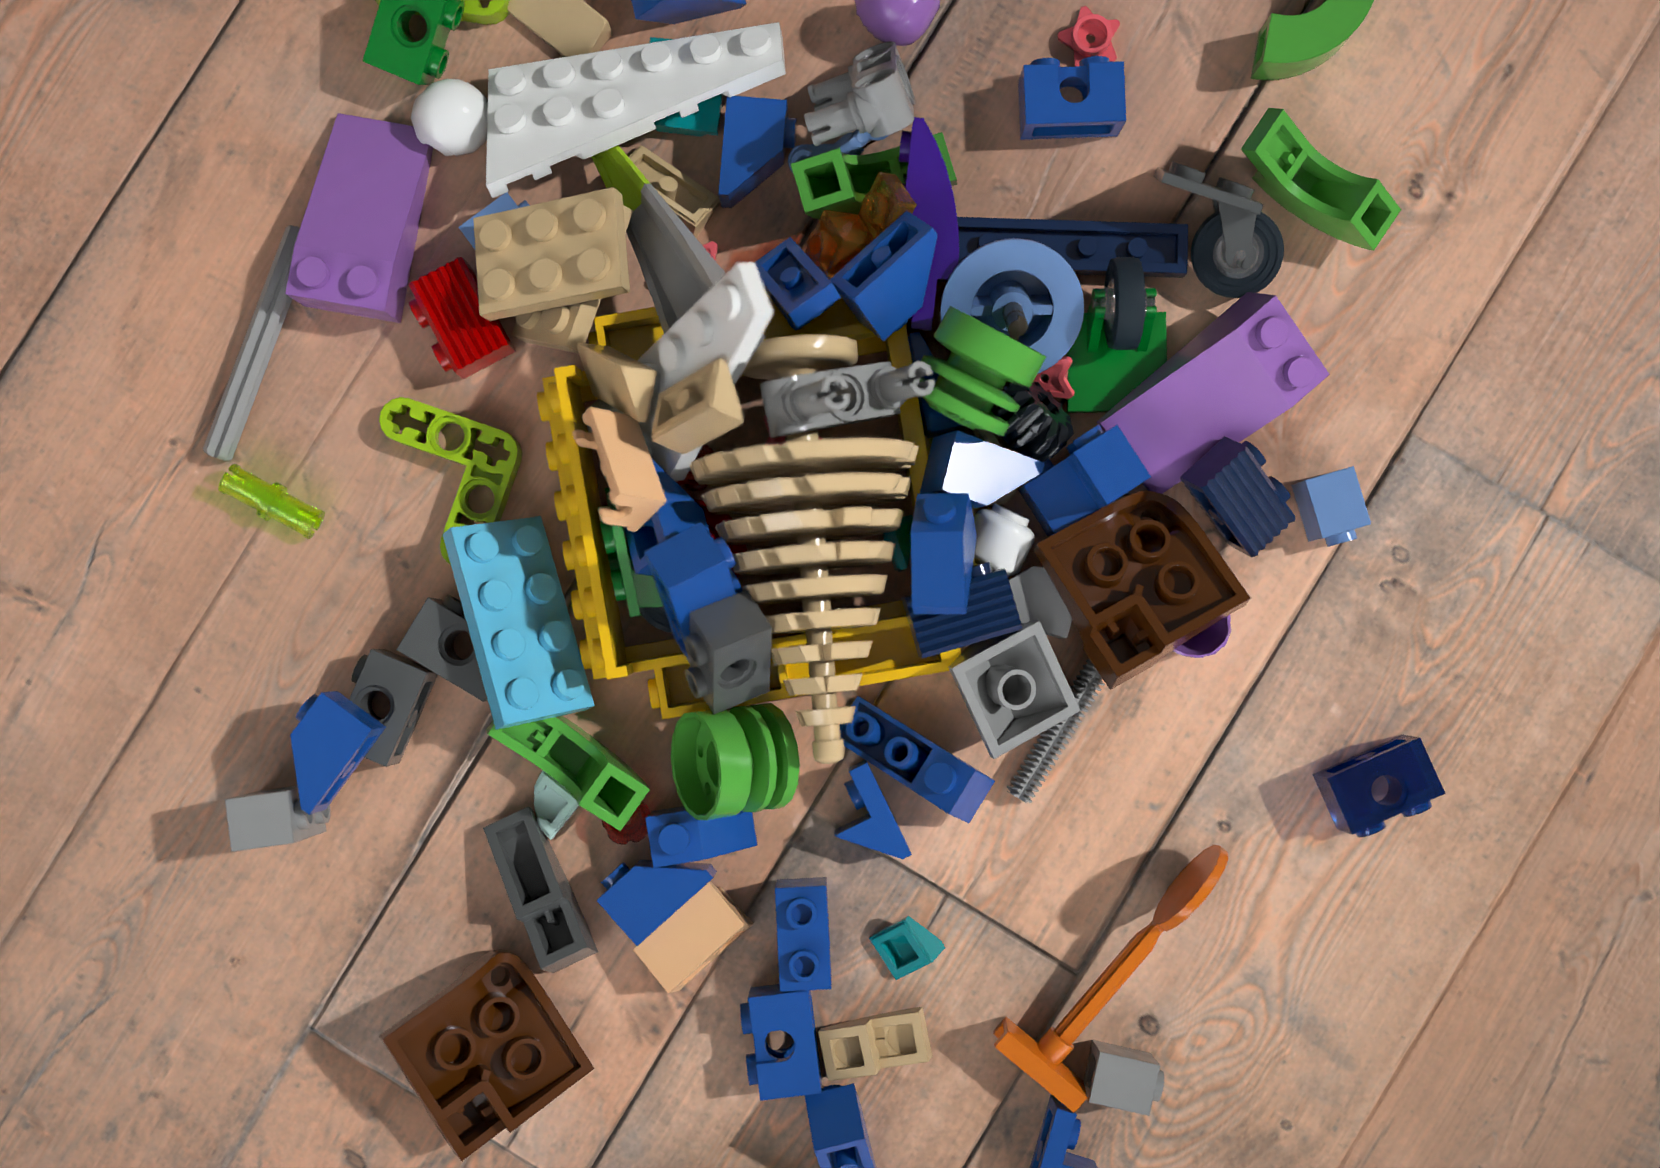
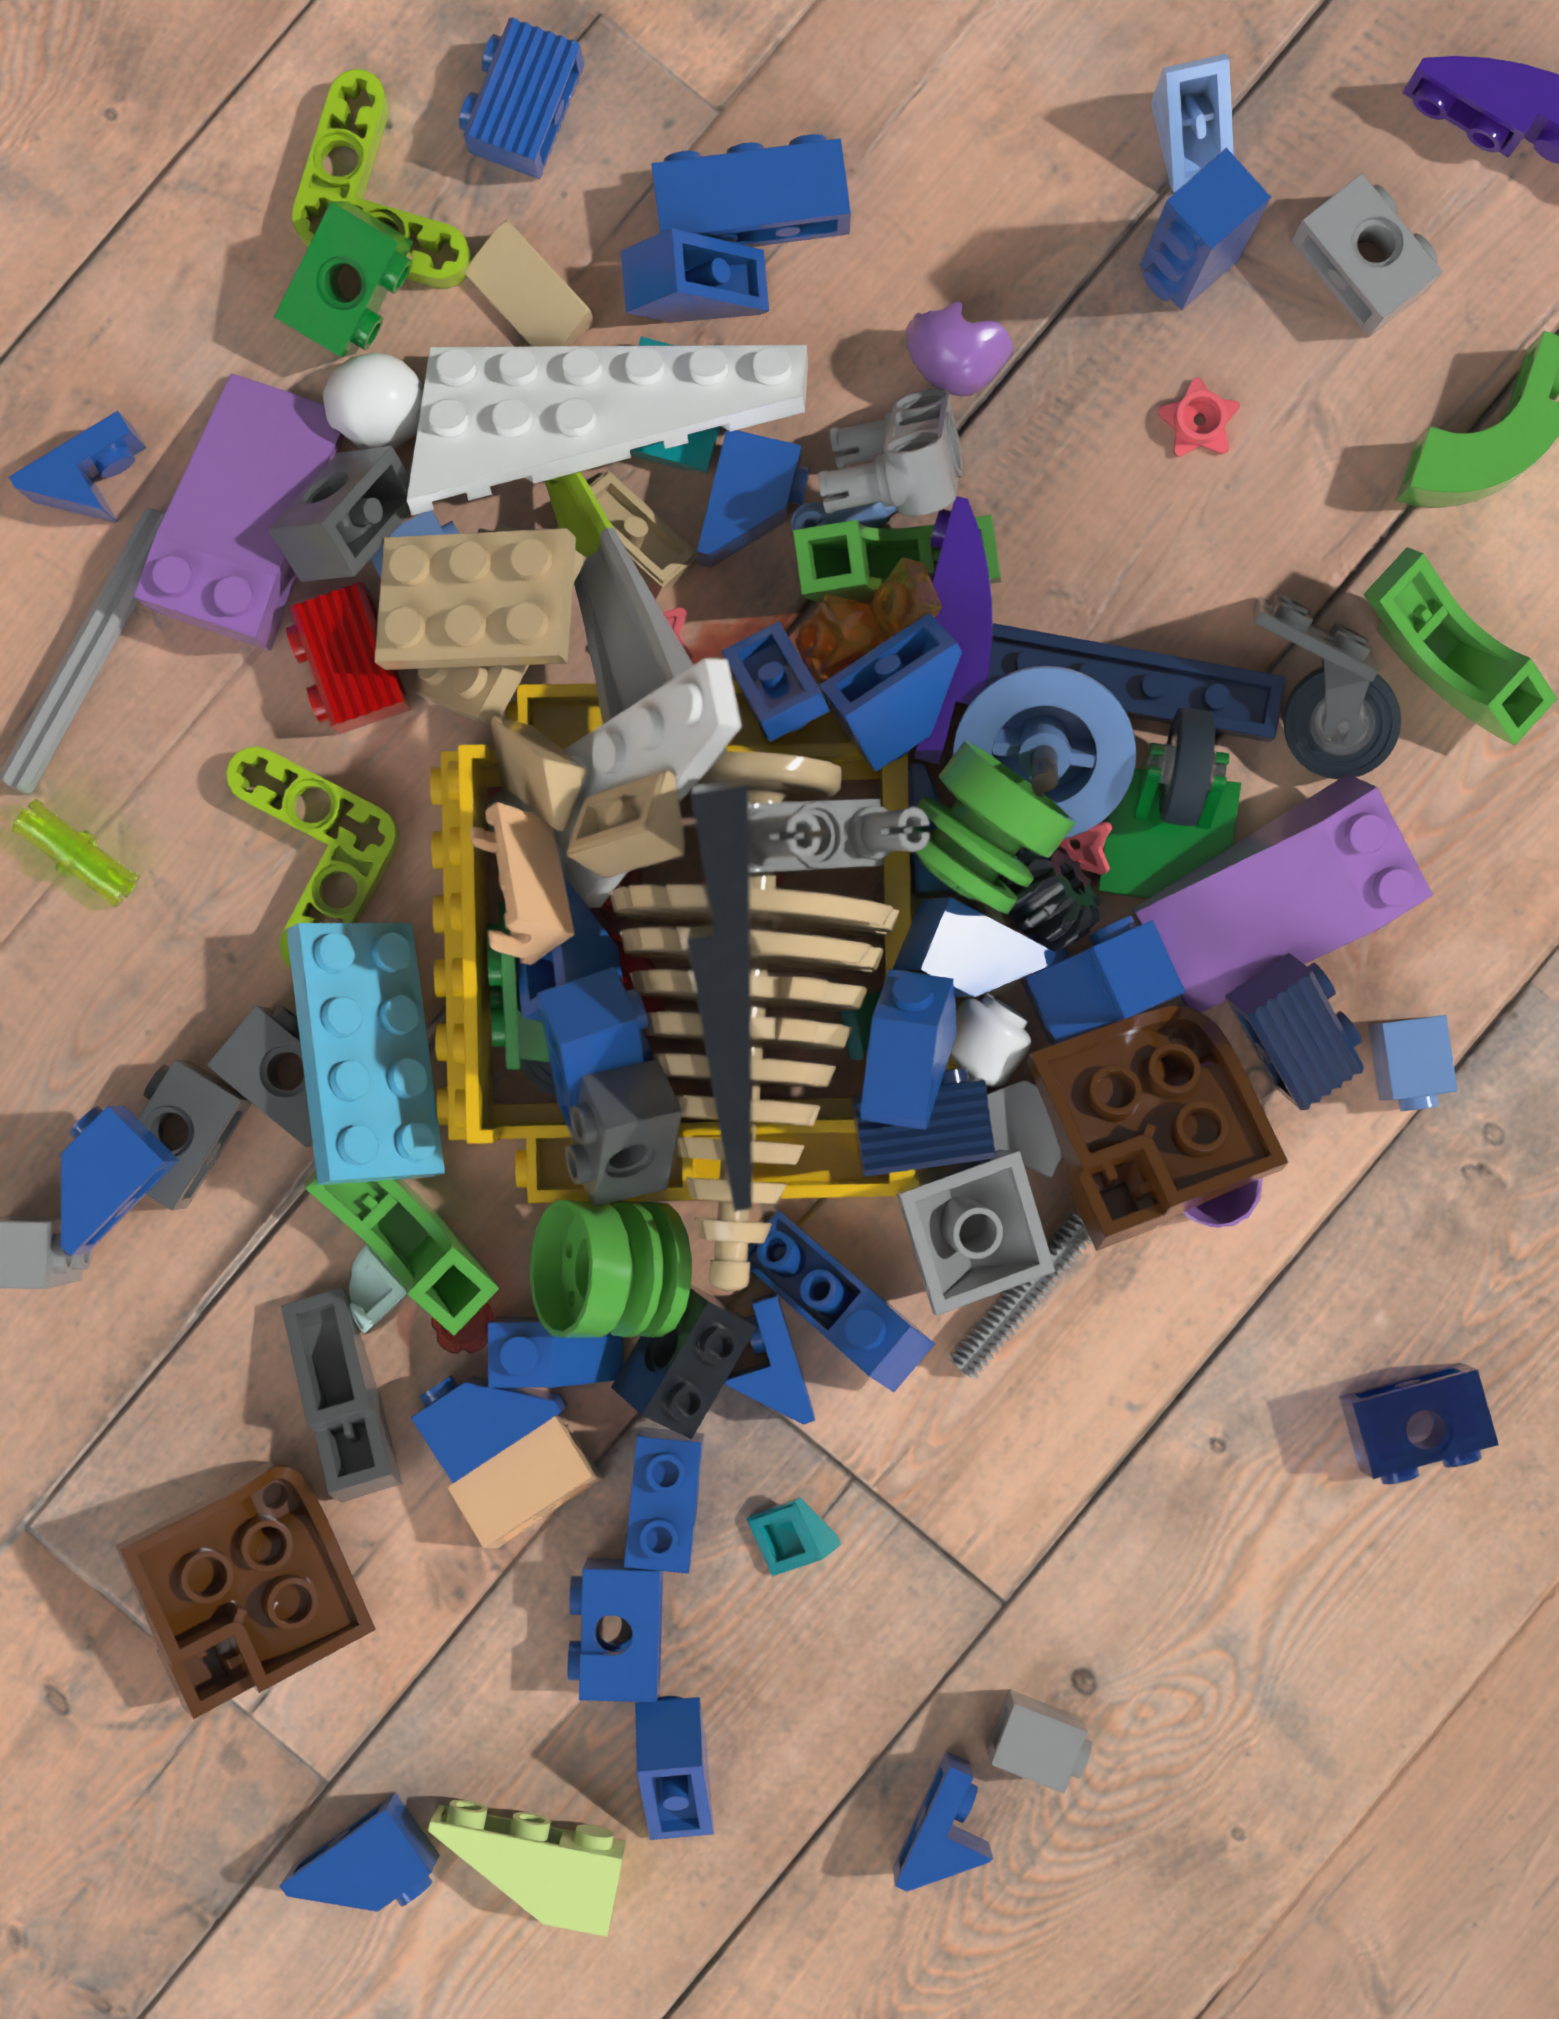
camera: 10 degrees right, 0 degrees up
(222, 206) = (67, 473): none -> blue slope
(439, 205) = (344, 514): none -> dark grey brick
(788, 509) = (723, 970): none -> black slope
(802, 833) = (681, 1373): none -> black brick
(875, 1043) = (734, 1652): tan slope -> none
(1044, 1058) = (944, 1702): orange piece -> none
(1050, 116) = (1130, 512): blue brick -> none

